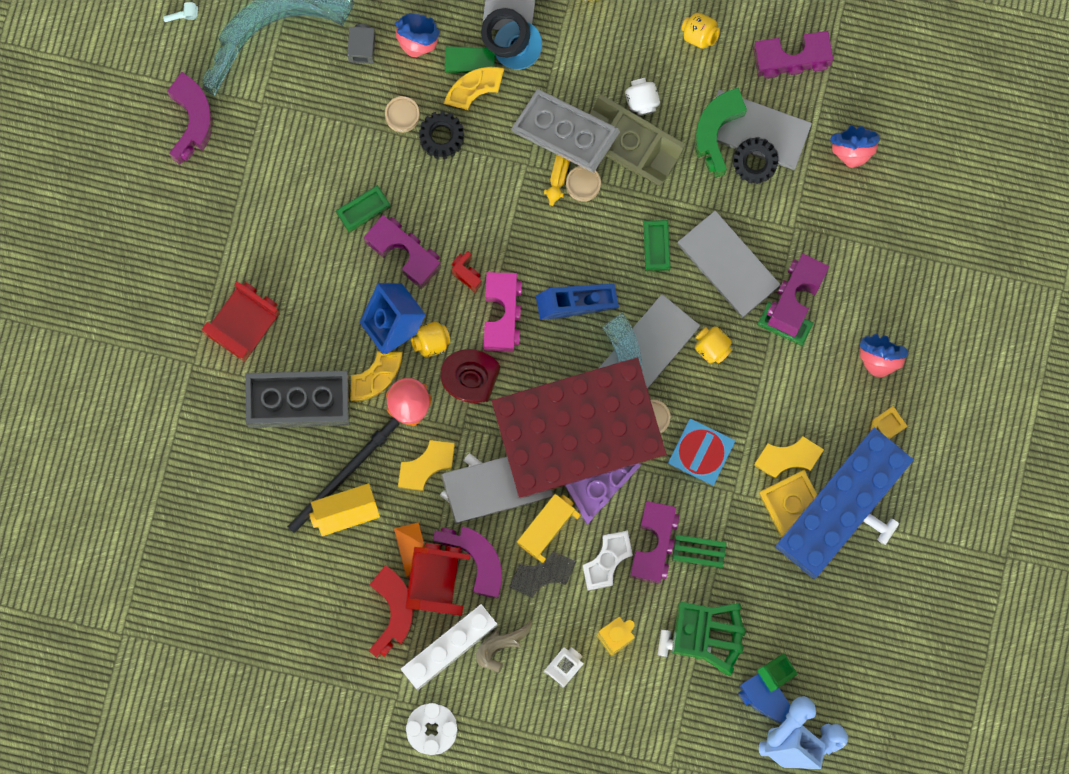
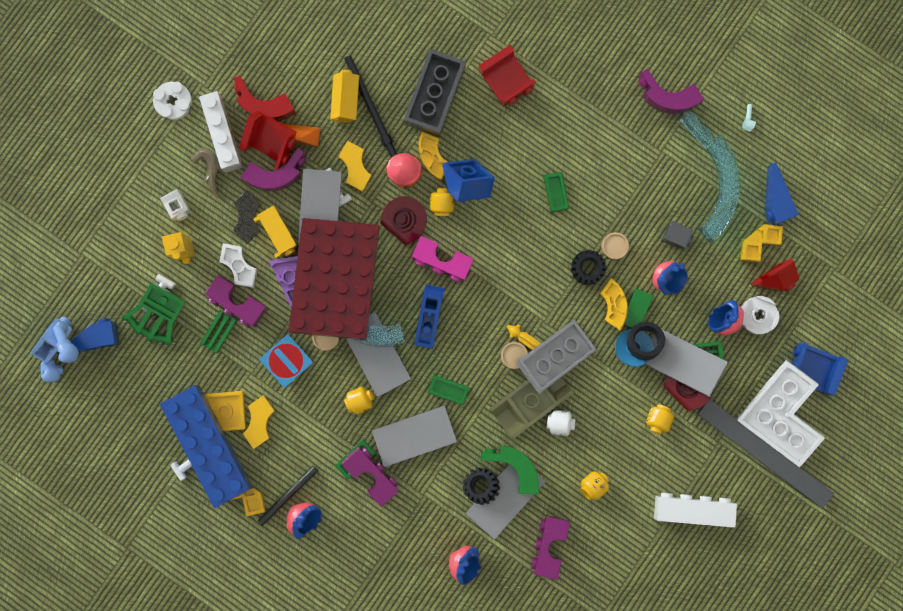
camera: 115 degrees right, 5 degrees up
(387, 236) = (499, 216): magenta arch -> none
(469, 276) = (477, 246): red bracket -> none
(777, 672) = (108, 350): green tile -> none
(861, 387) = (288, 495): none -> pearl dark grey bar

